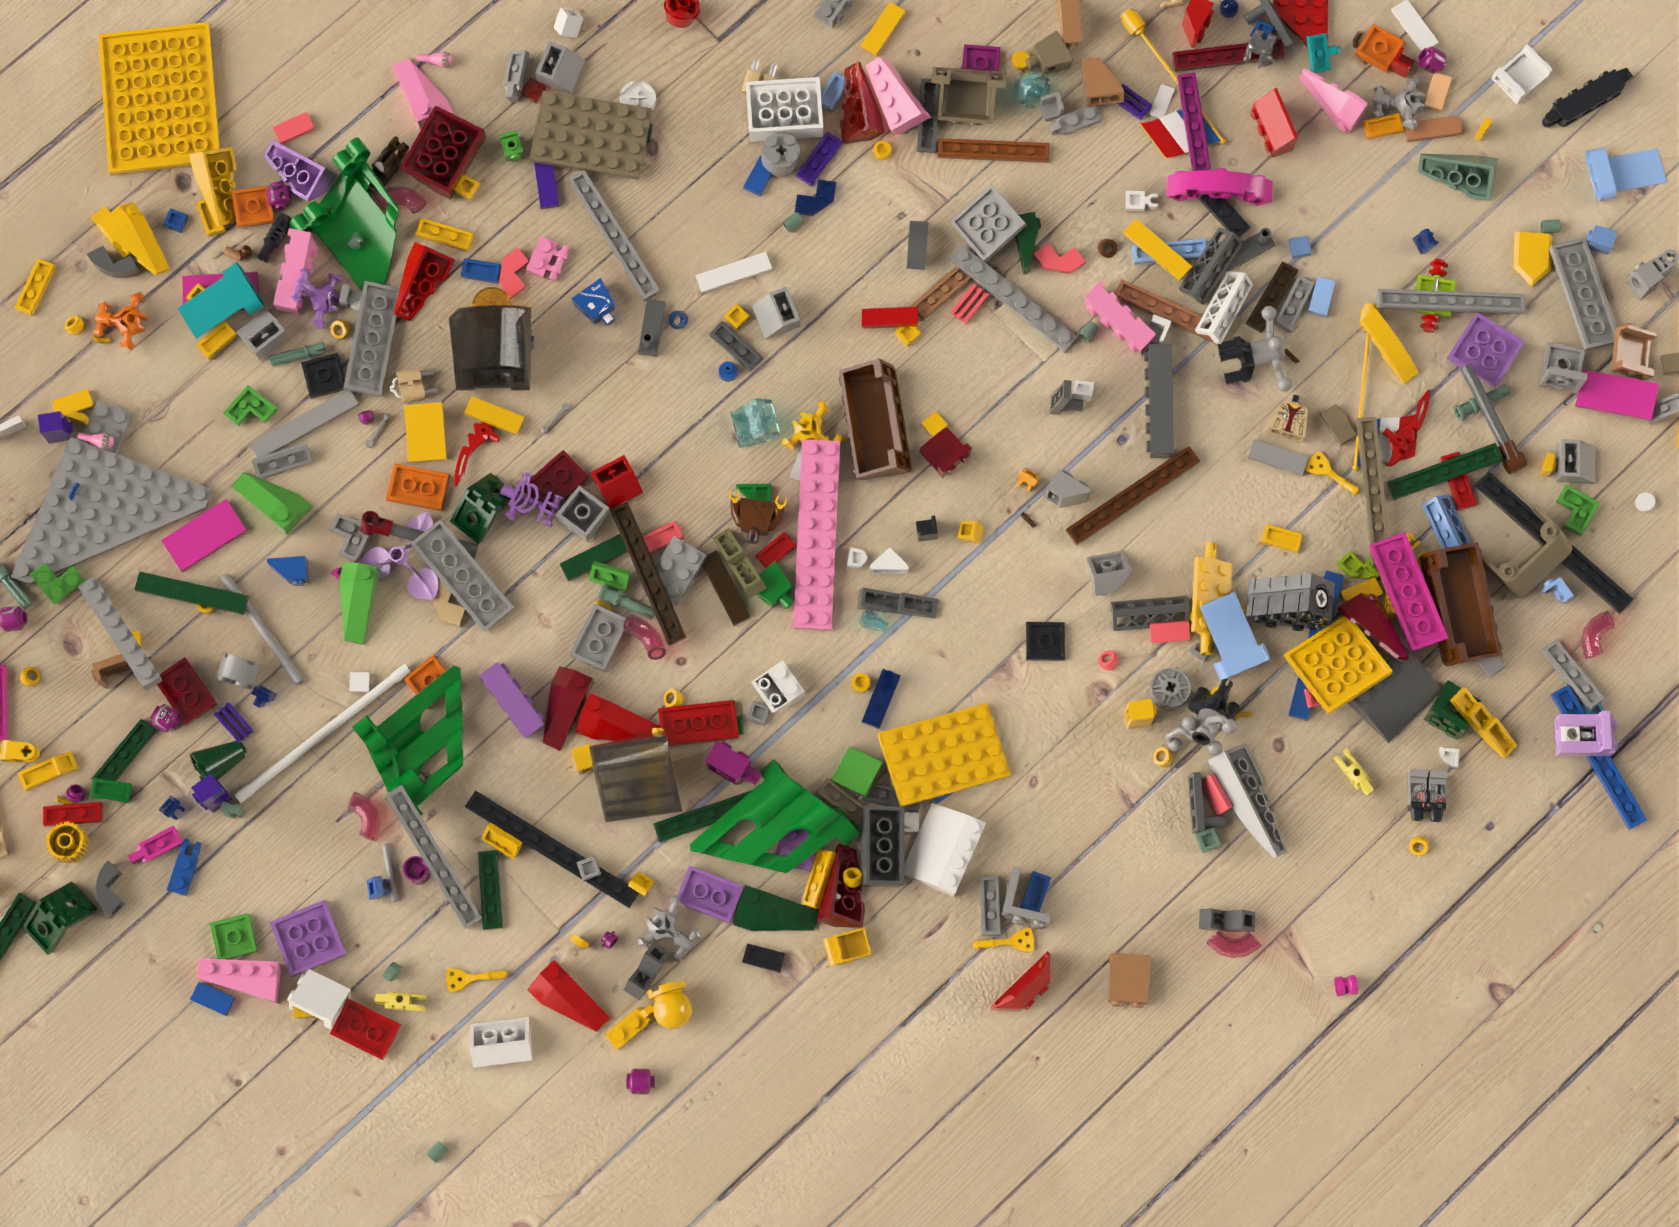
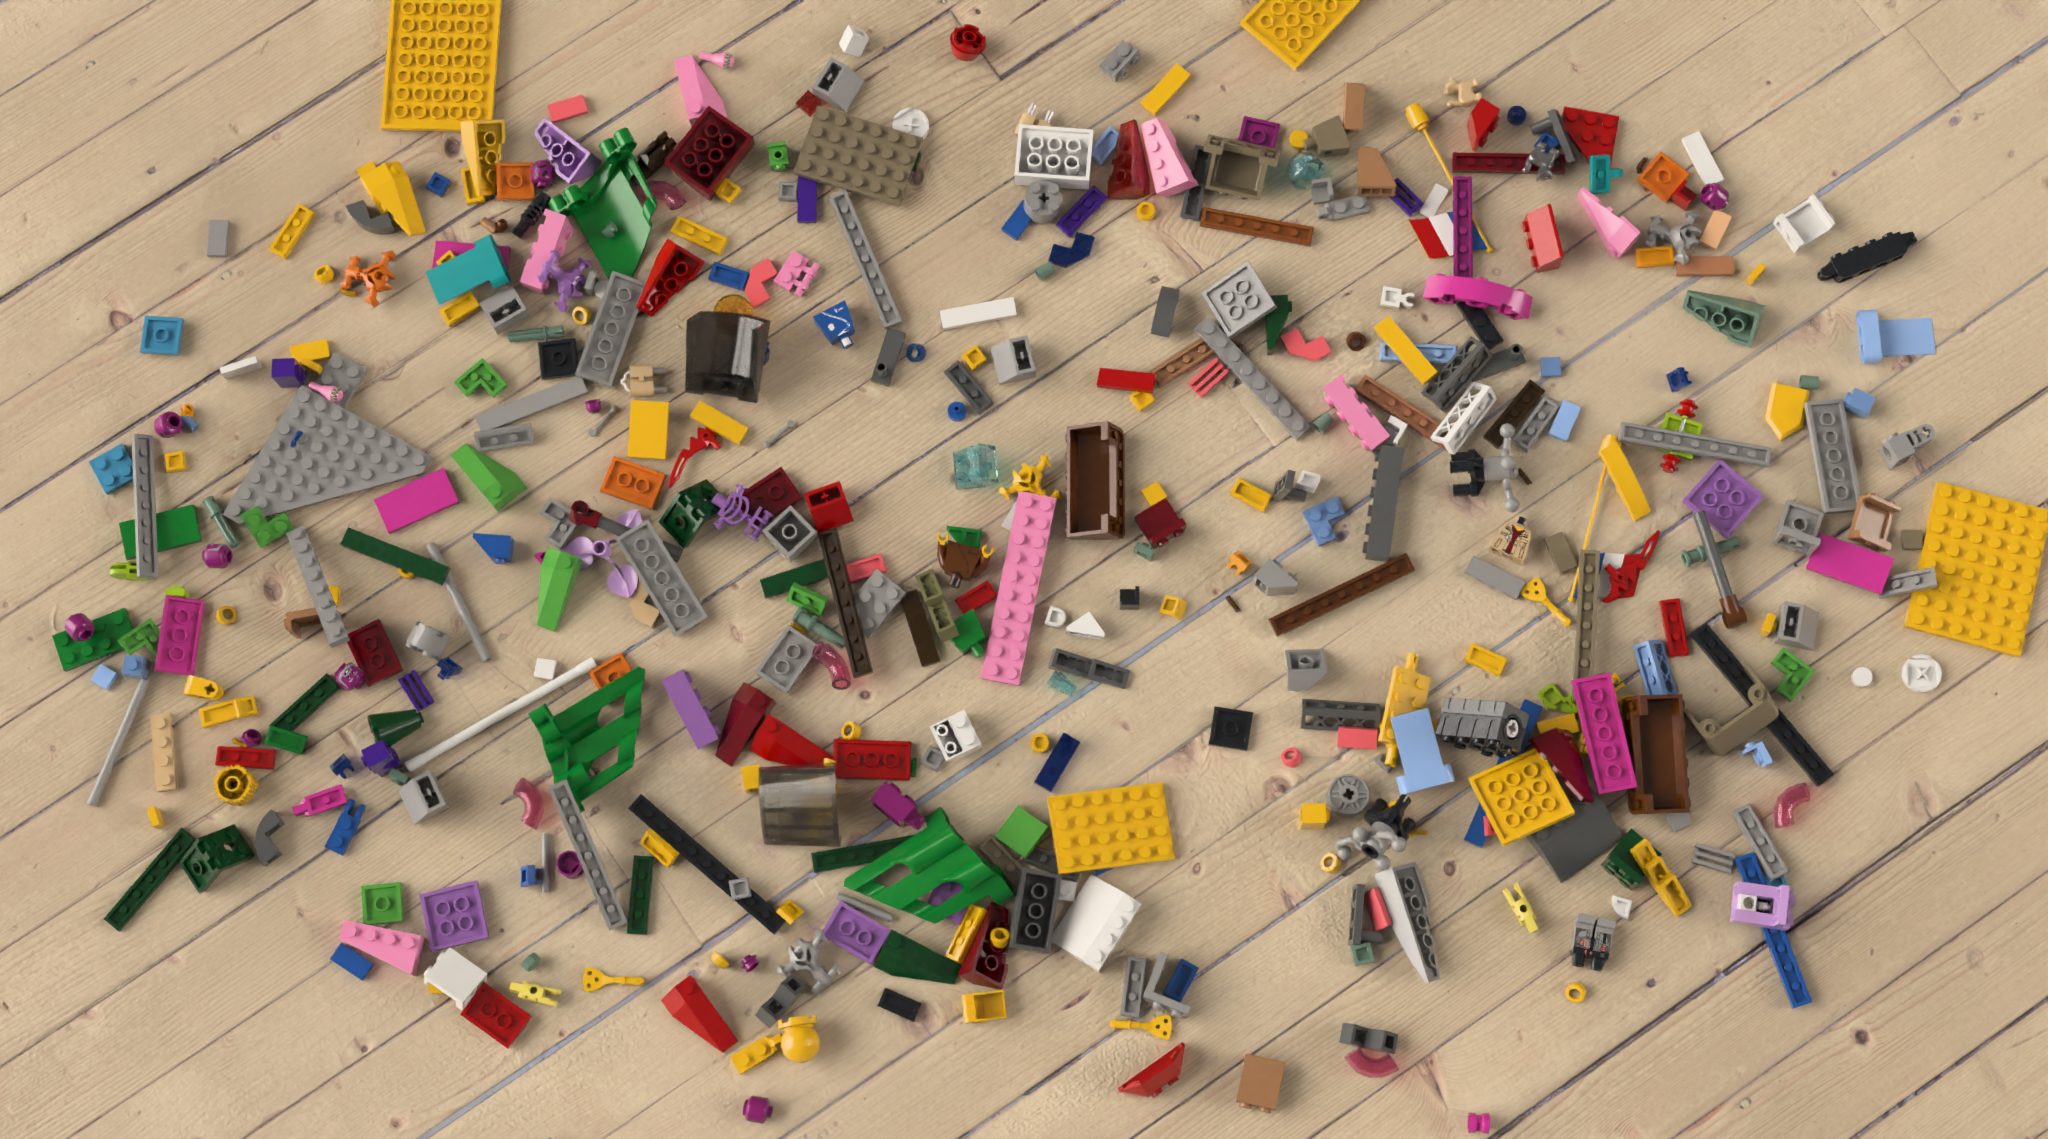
camera: 15 degrees right, 0 degrees up
(258, 826) = (423, 797): none -> light grey slope
(500, 1042) = (626, 1048): white slope -> none
(515, 74) = (794, 85): light grey hinge -> none
(526, 179) = (788, 191): none -> light grey tile
(714, 868) = (864, 906): none -> light grey bar
(933, 480) = (1144, 550): none -> sand green plate
(1029, 411) = (1251, 495): none -> yellow tile
(1099, 423) = (1319, 518): none -> medium blue plate
(1444, 471) = (1661, 616): dark green tile -> none
(1546, 698) = (1731, 856): none -> light grey tile

